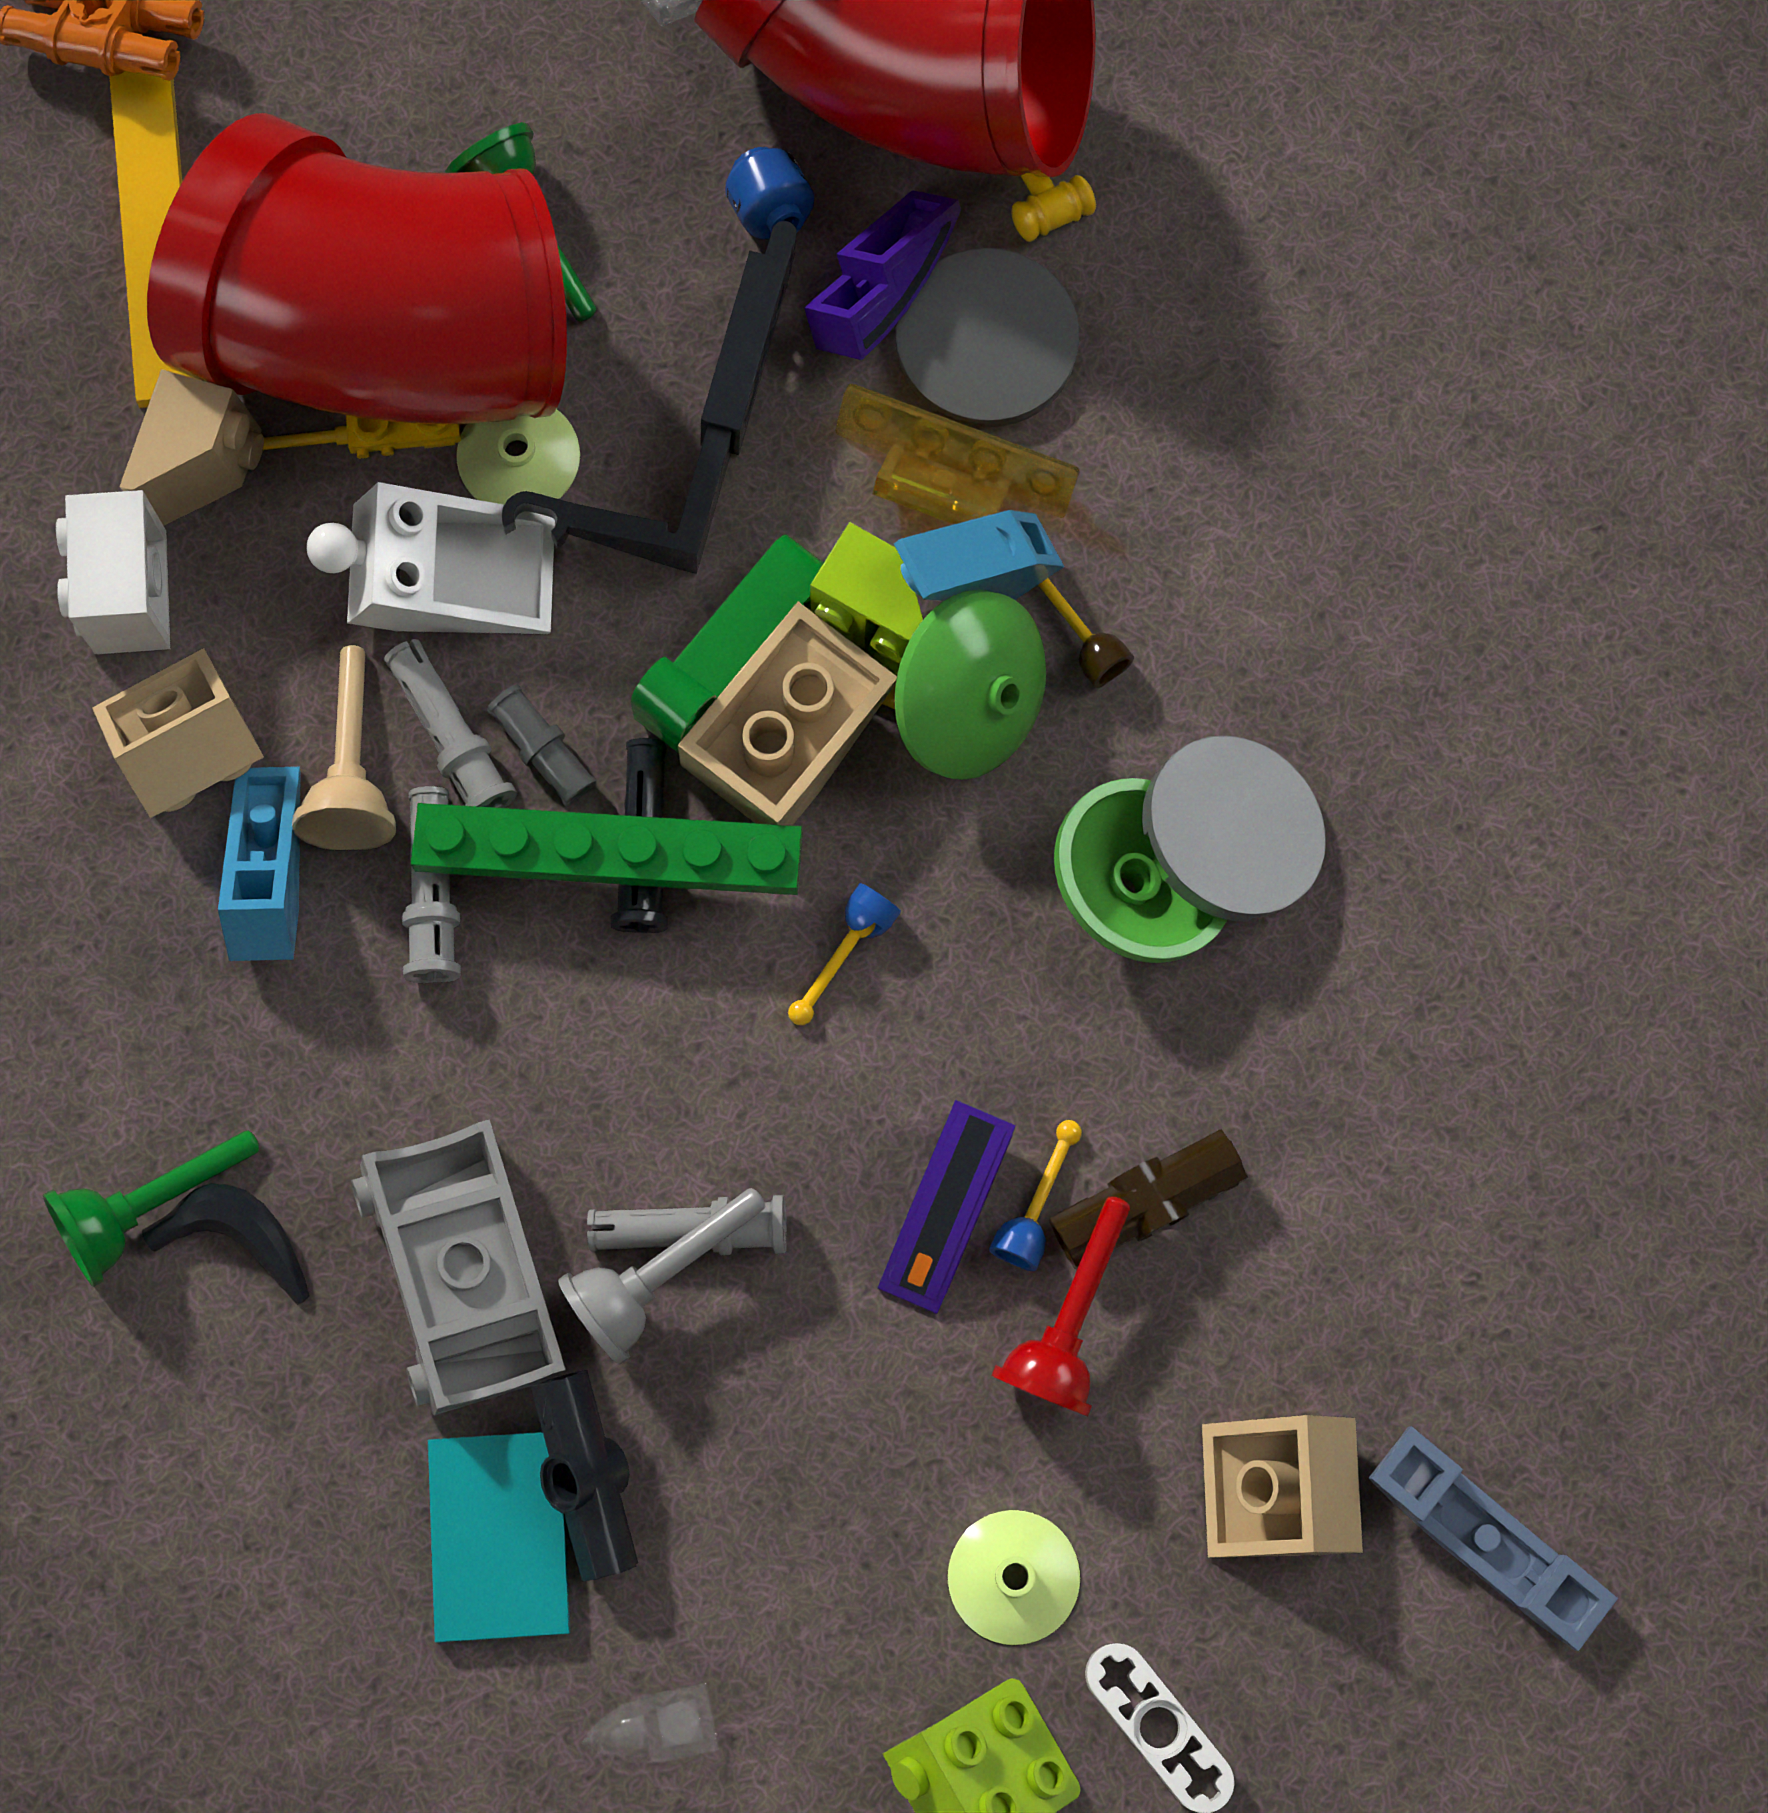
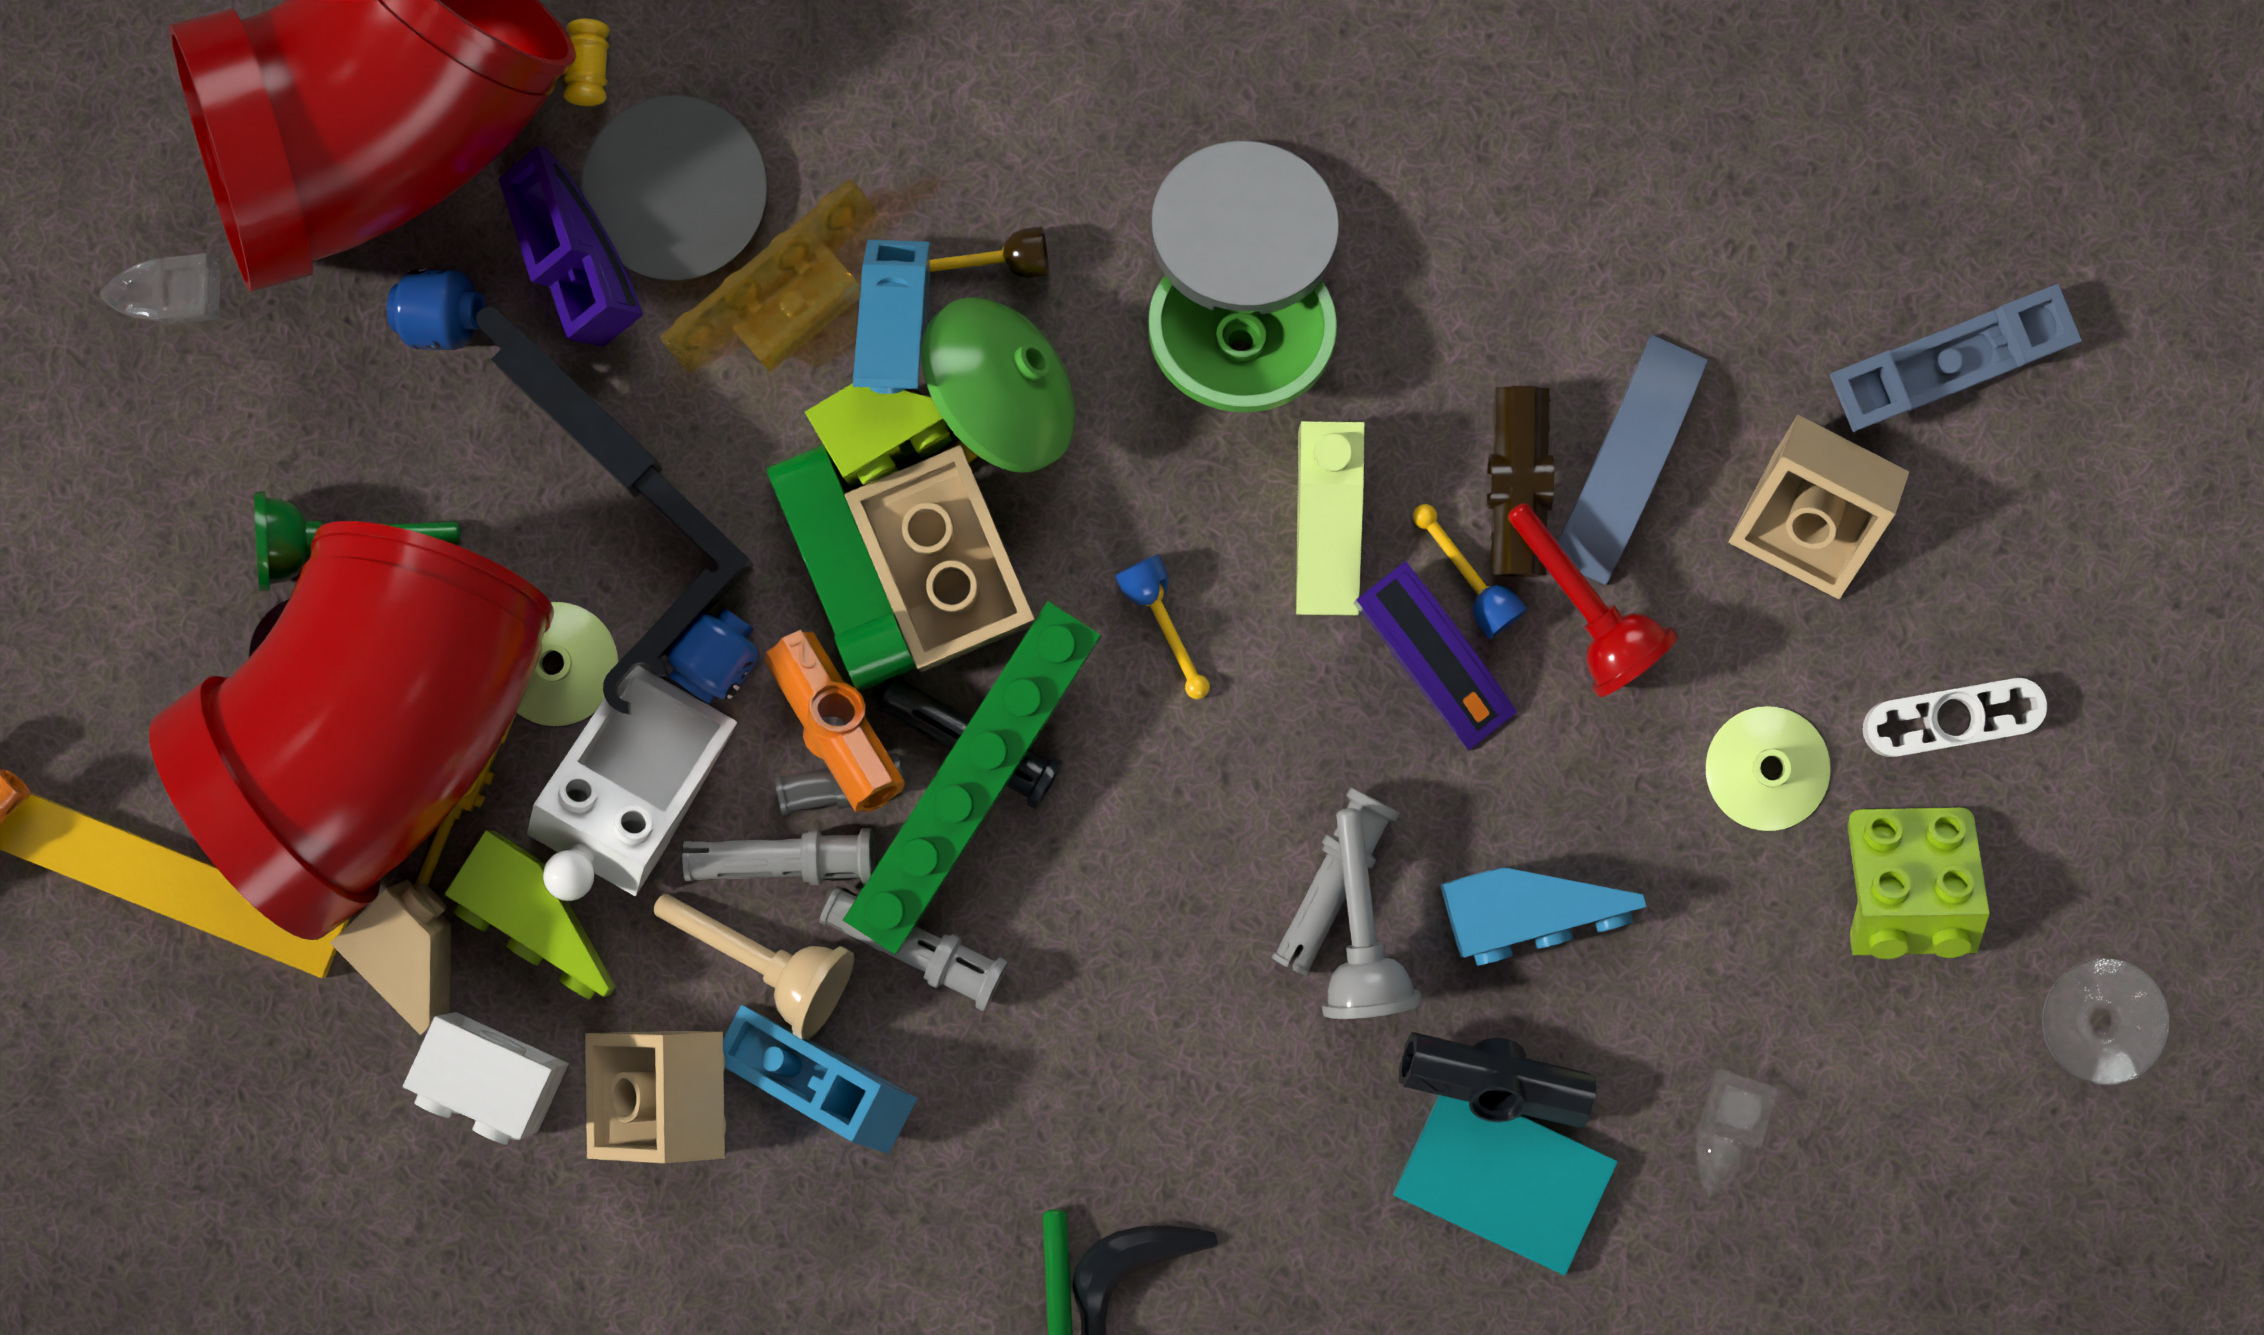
camera: 55 degrees left, 10 degrees up
(287, 505) = (507, 889): none -> lime slope
(460, 1268) = (1266, 1093): light grey piece -> none
(574, 728) = (848, 750): none -> orange piece
(596, 577) = (713, 656): none -> blue head
(755, 1403) = (1514, 905): none -> dark azure slope
(1020, 1042) = (1329, 517): none -> yellowish green slope
(1226, 1288) = (1631, 457): none -> sand blue slope

